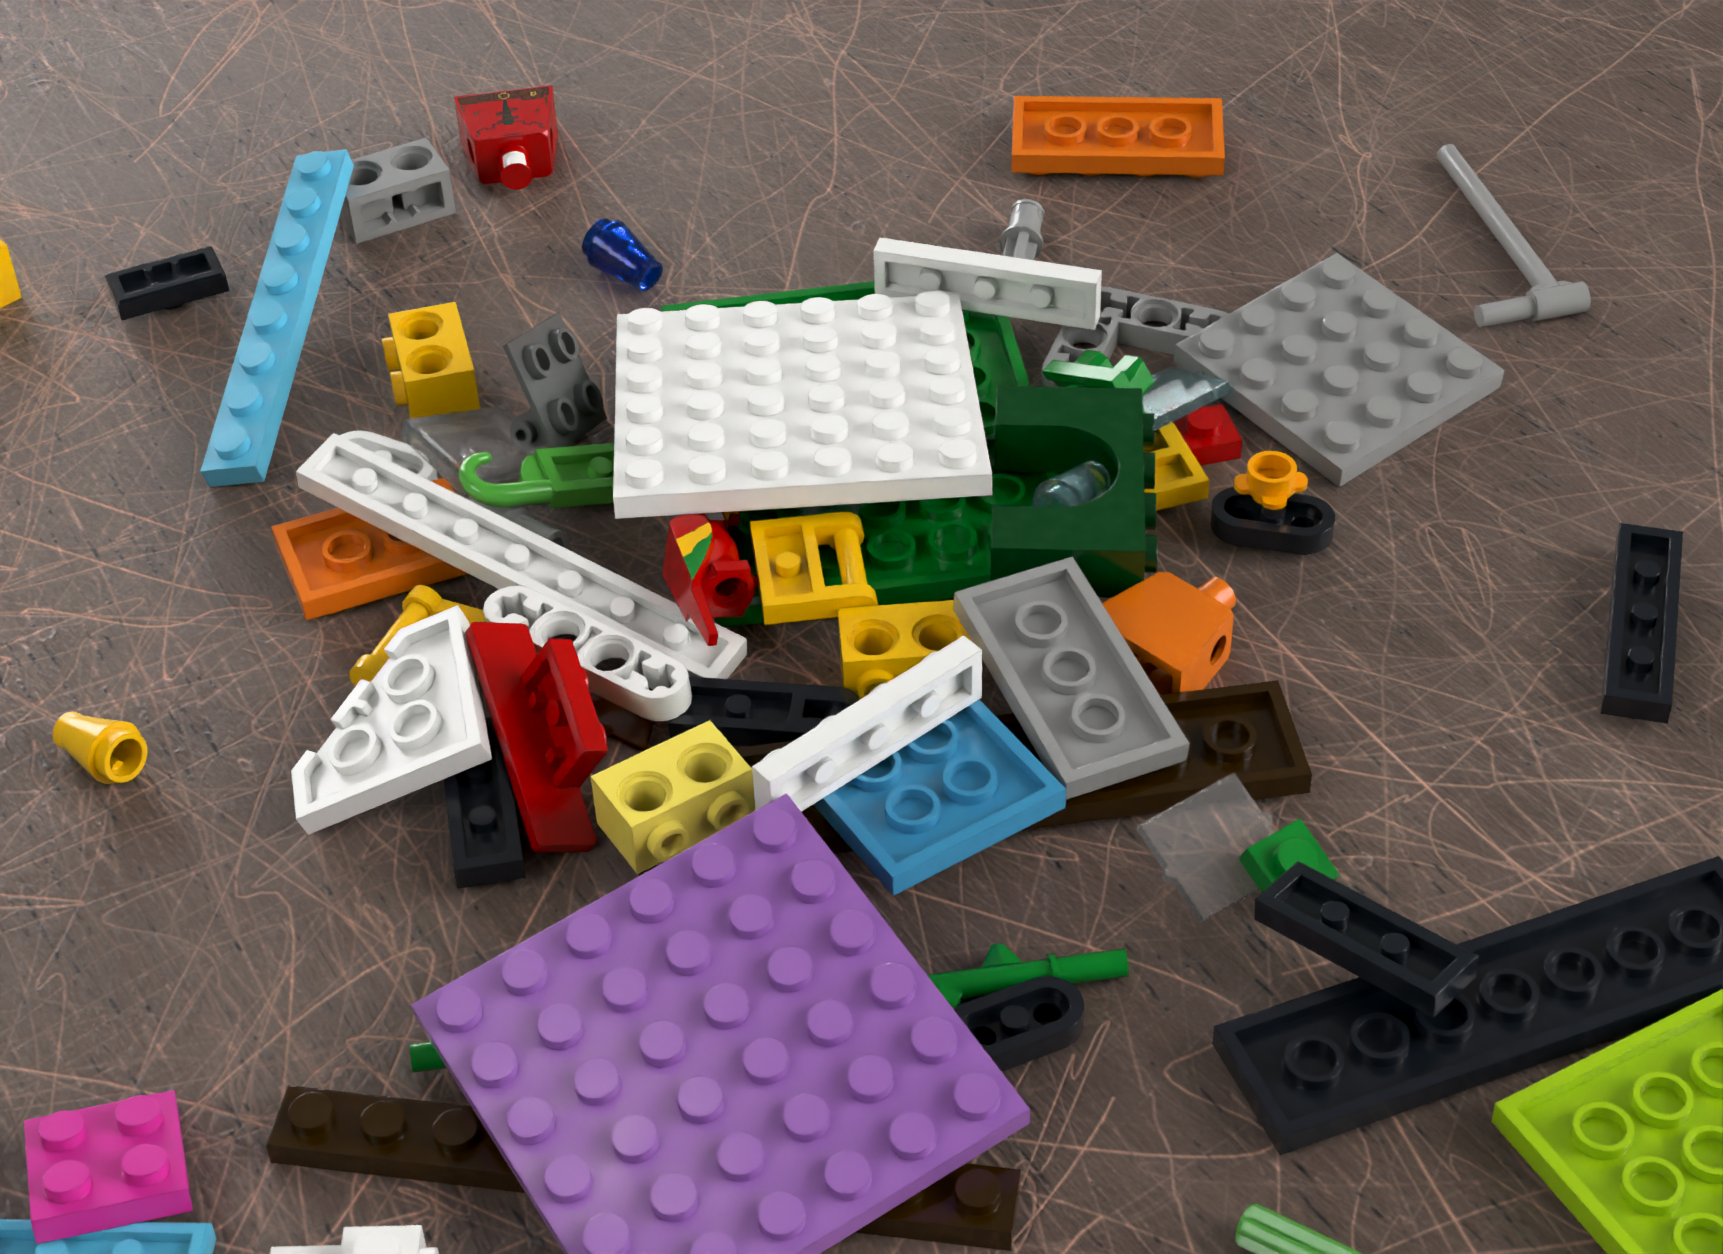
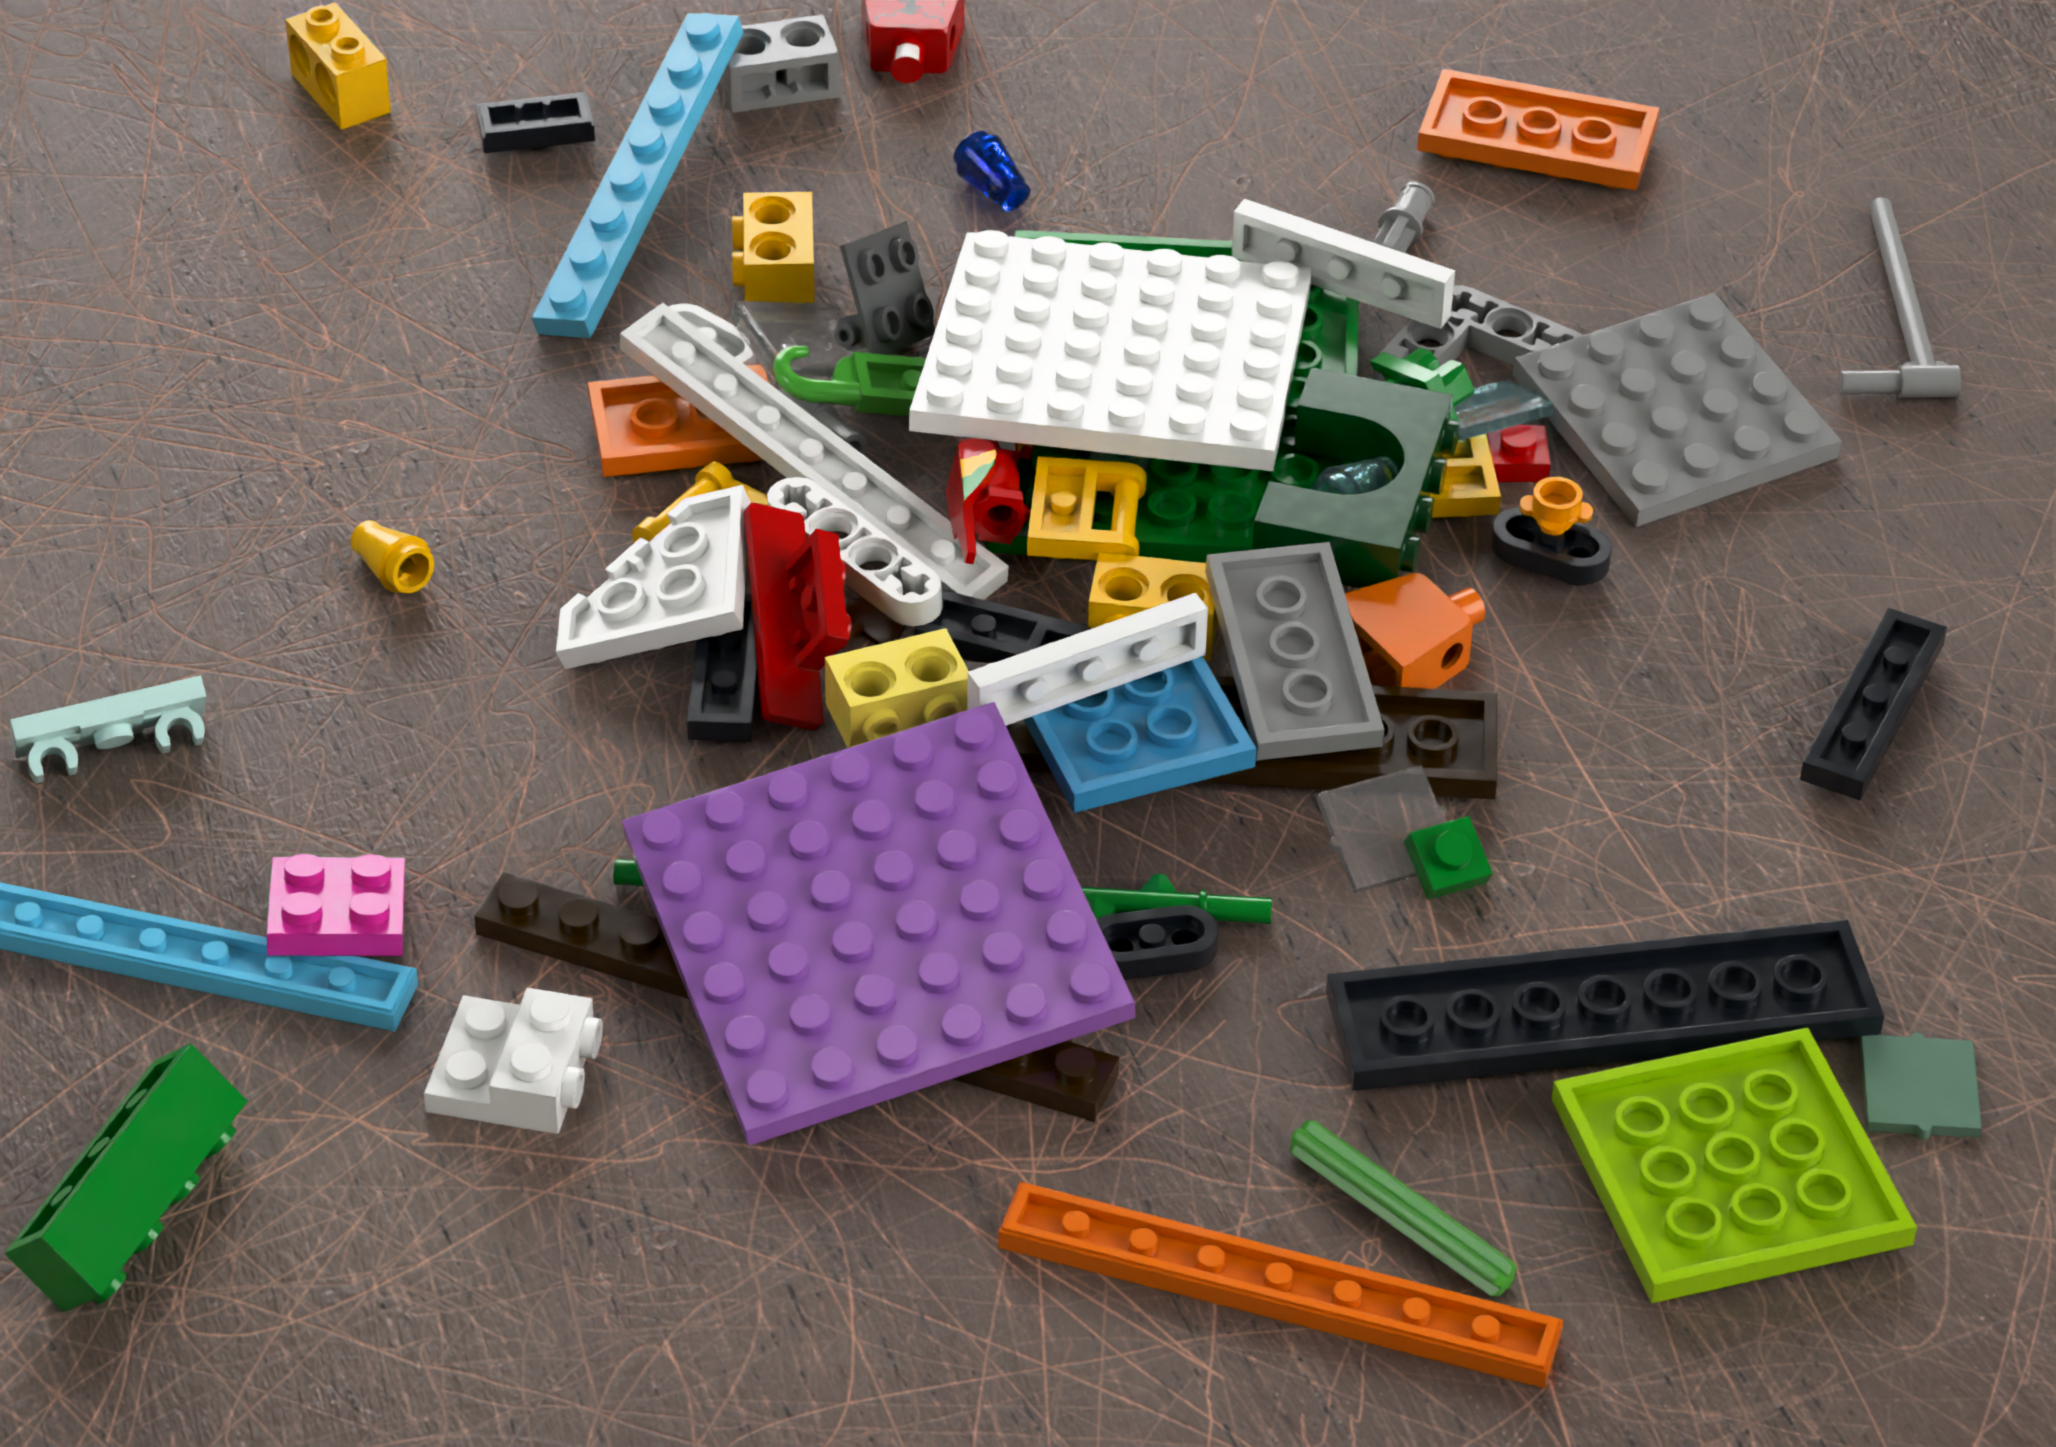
camera: 10 degrees right, 0 degrees up
(1366, 938) = (1485, 924): black plate -> none

